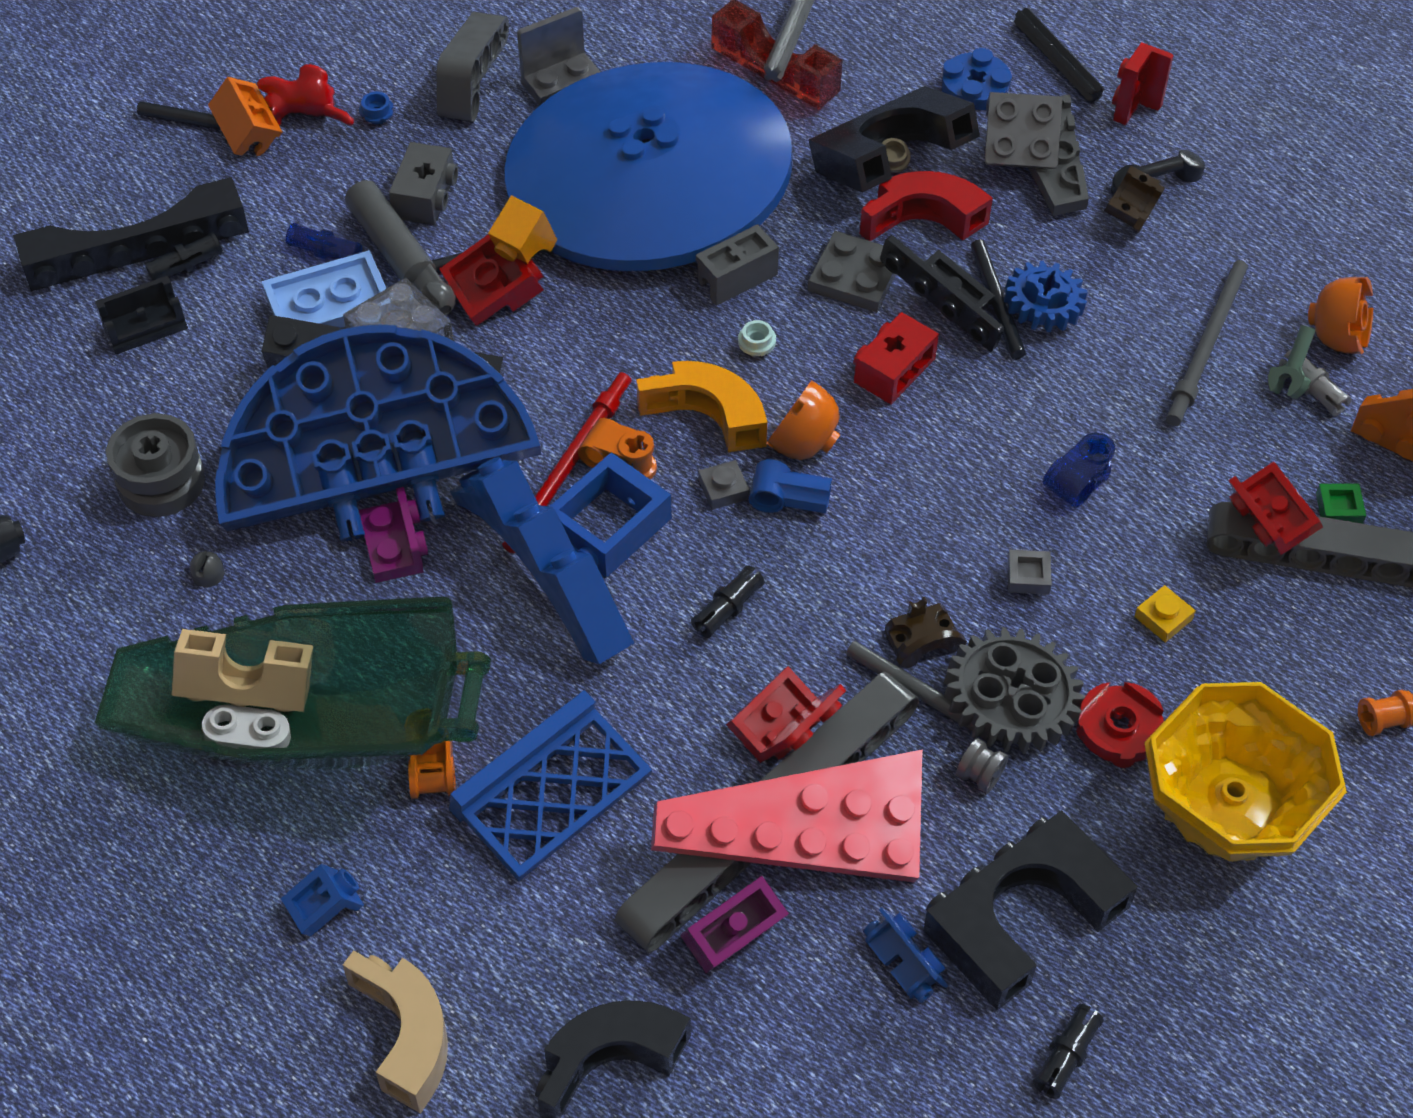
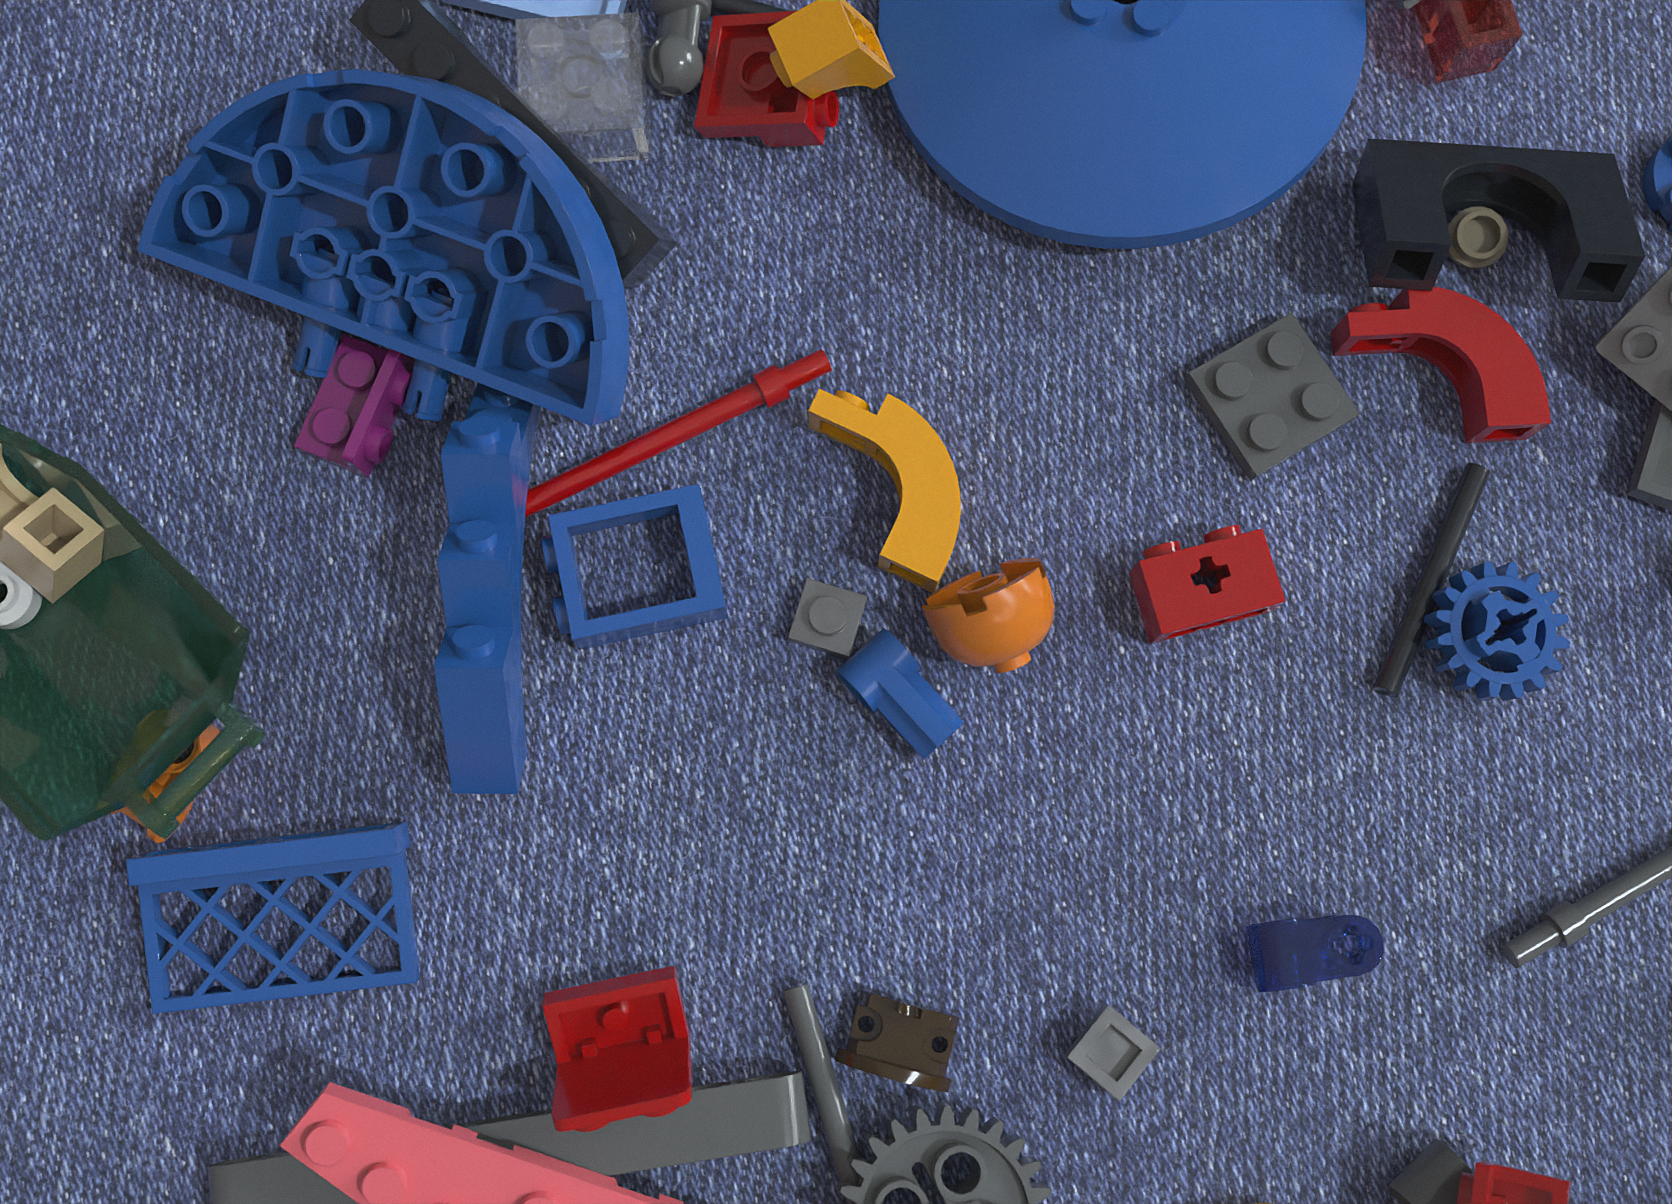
camera: 35 degrees right, 25 degrees up
(155, 464) = (137, 91): dark grey wheel -> none
(212, 572) = (114, 298): dark grey hinge -> none
(622, 441) = (727, 469): orange piece -> none
(727, 601) = (692, 805): black pin -> none
(738, 264) = (1110, 281): dark grey hinge -> none
(757, 338) = (1059, 406): light aqua plate -> none
(947, 288) = (1369, 528): black bracket -> none

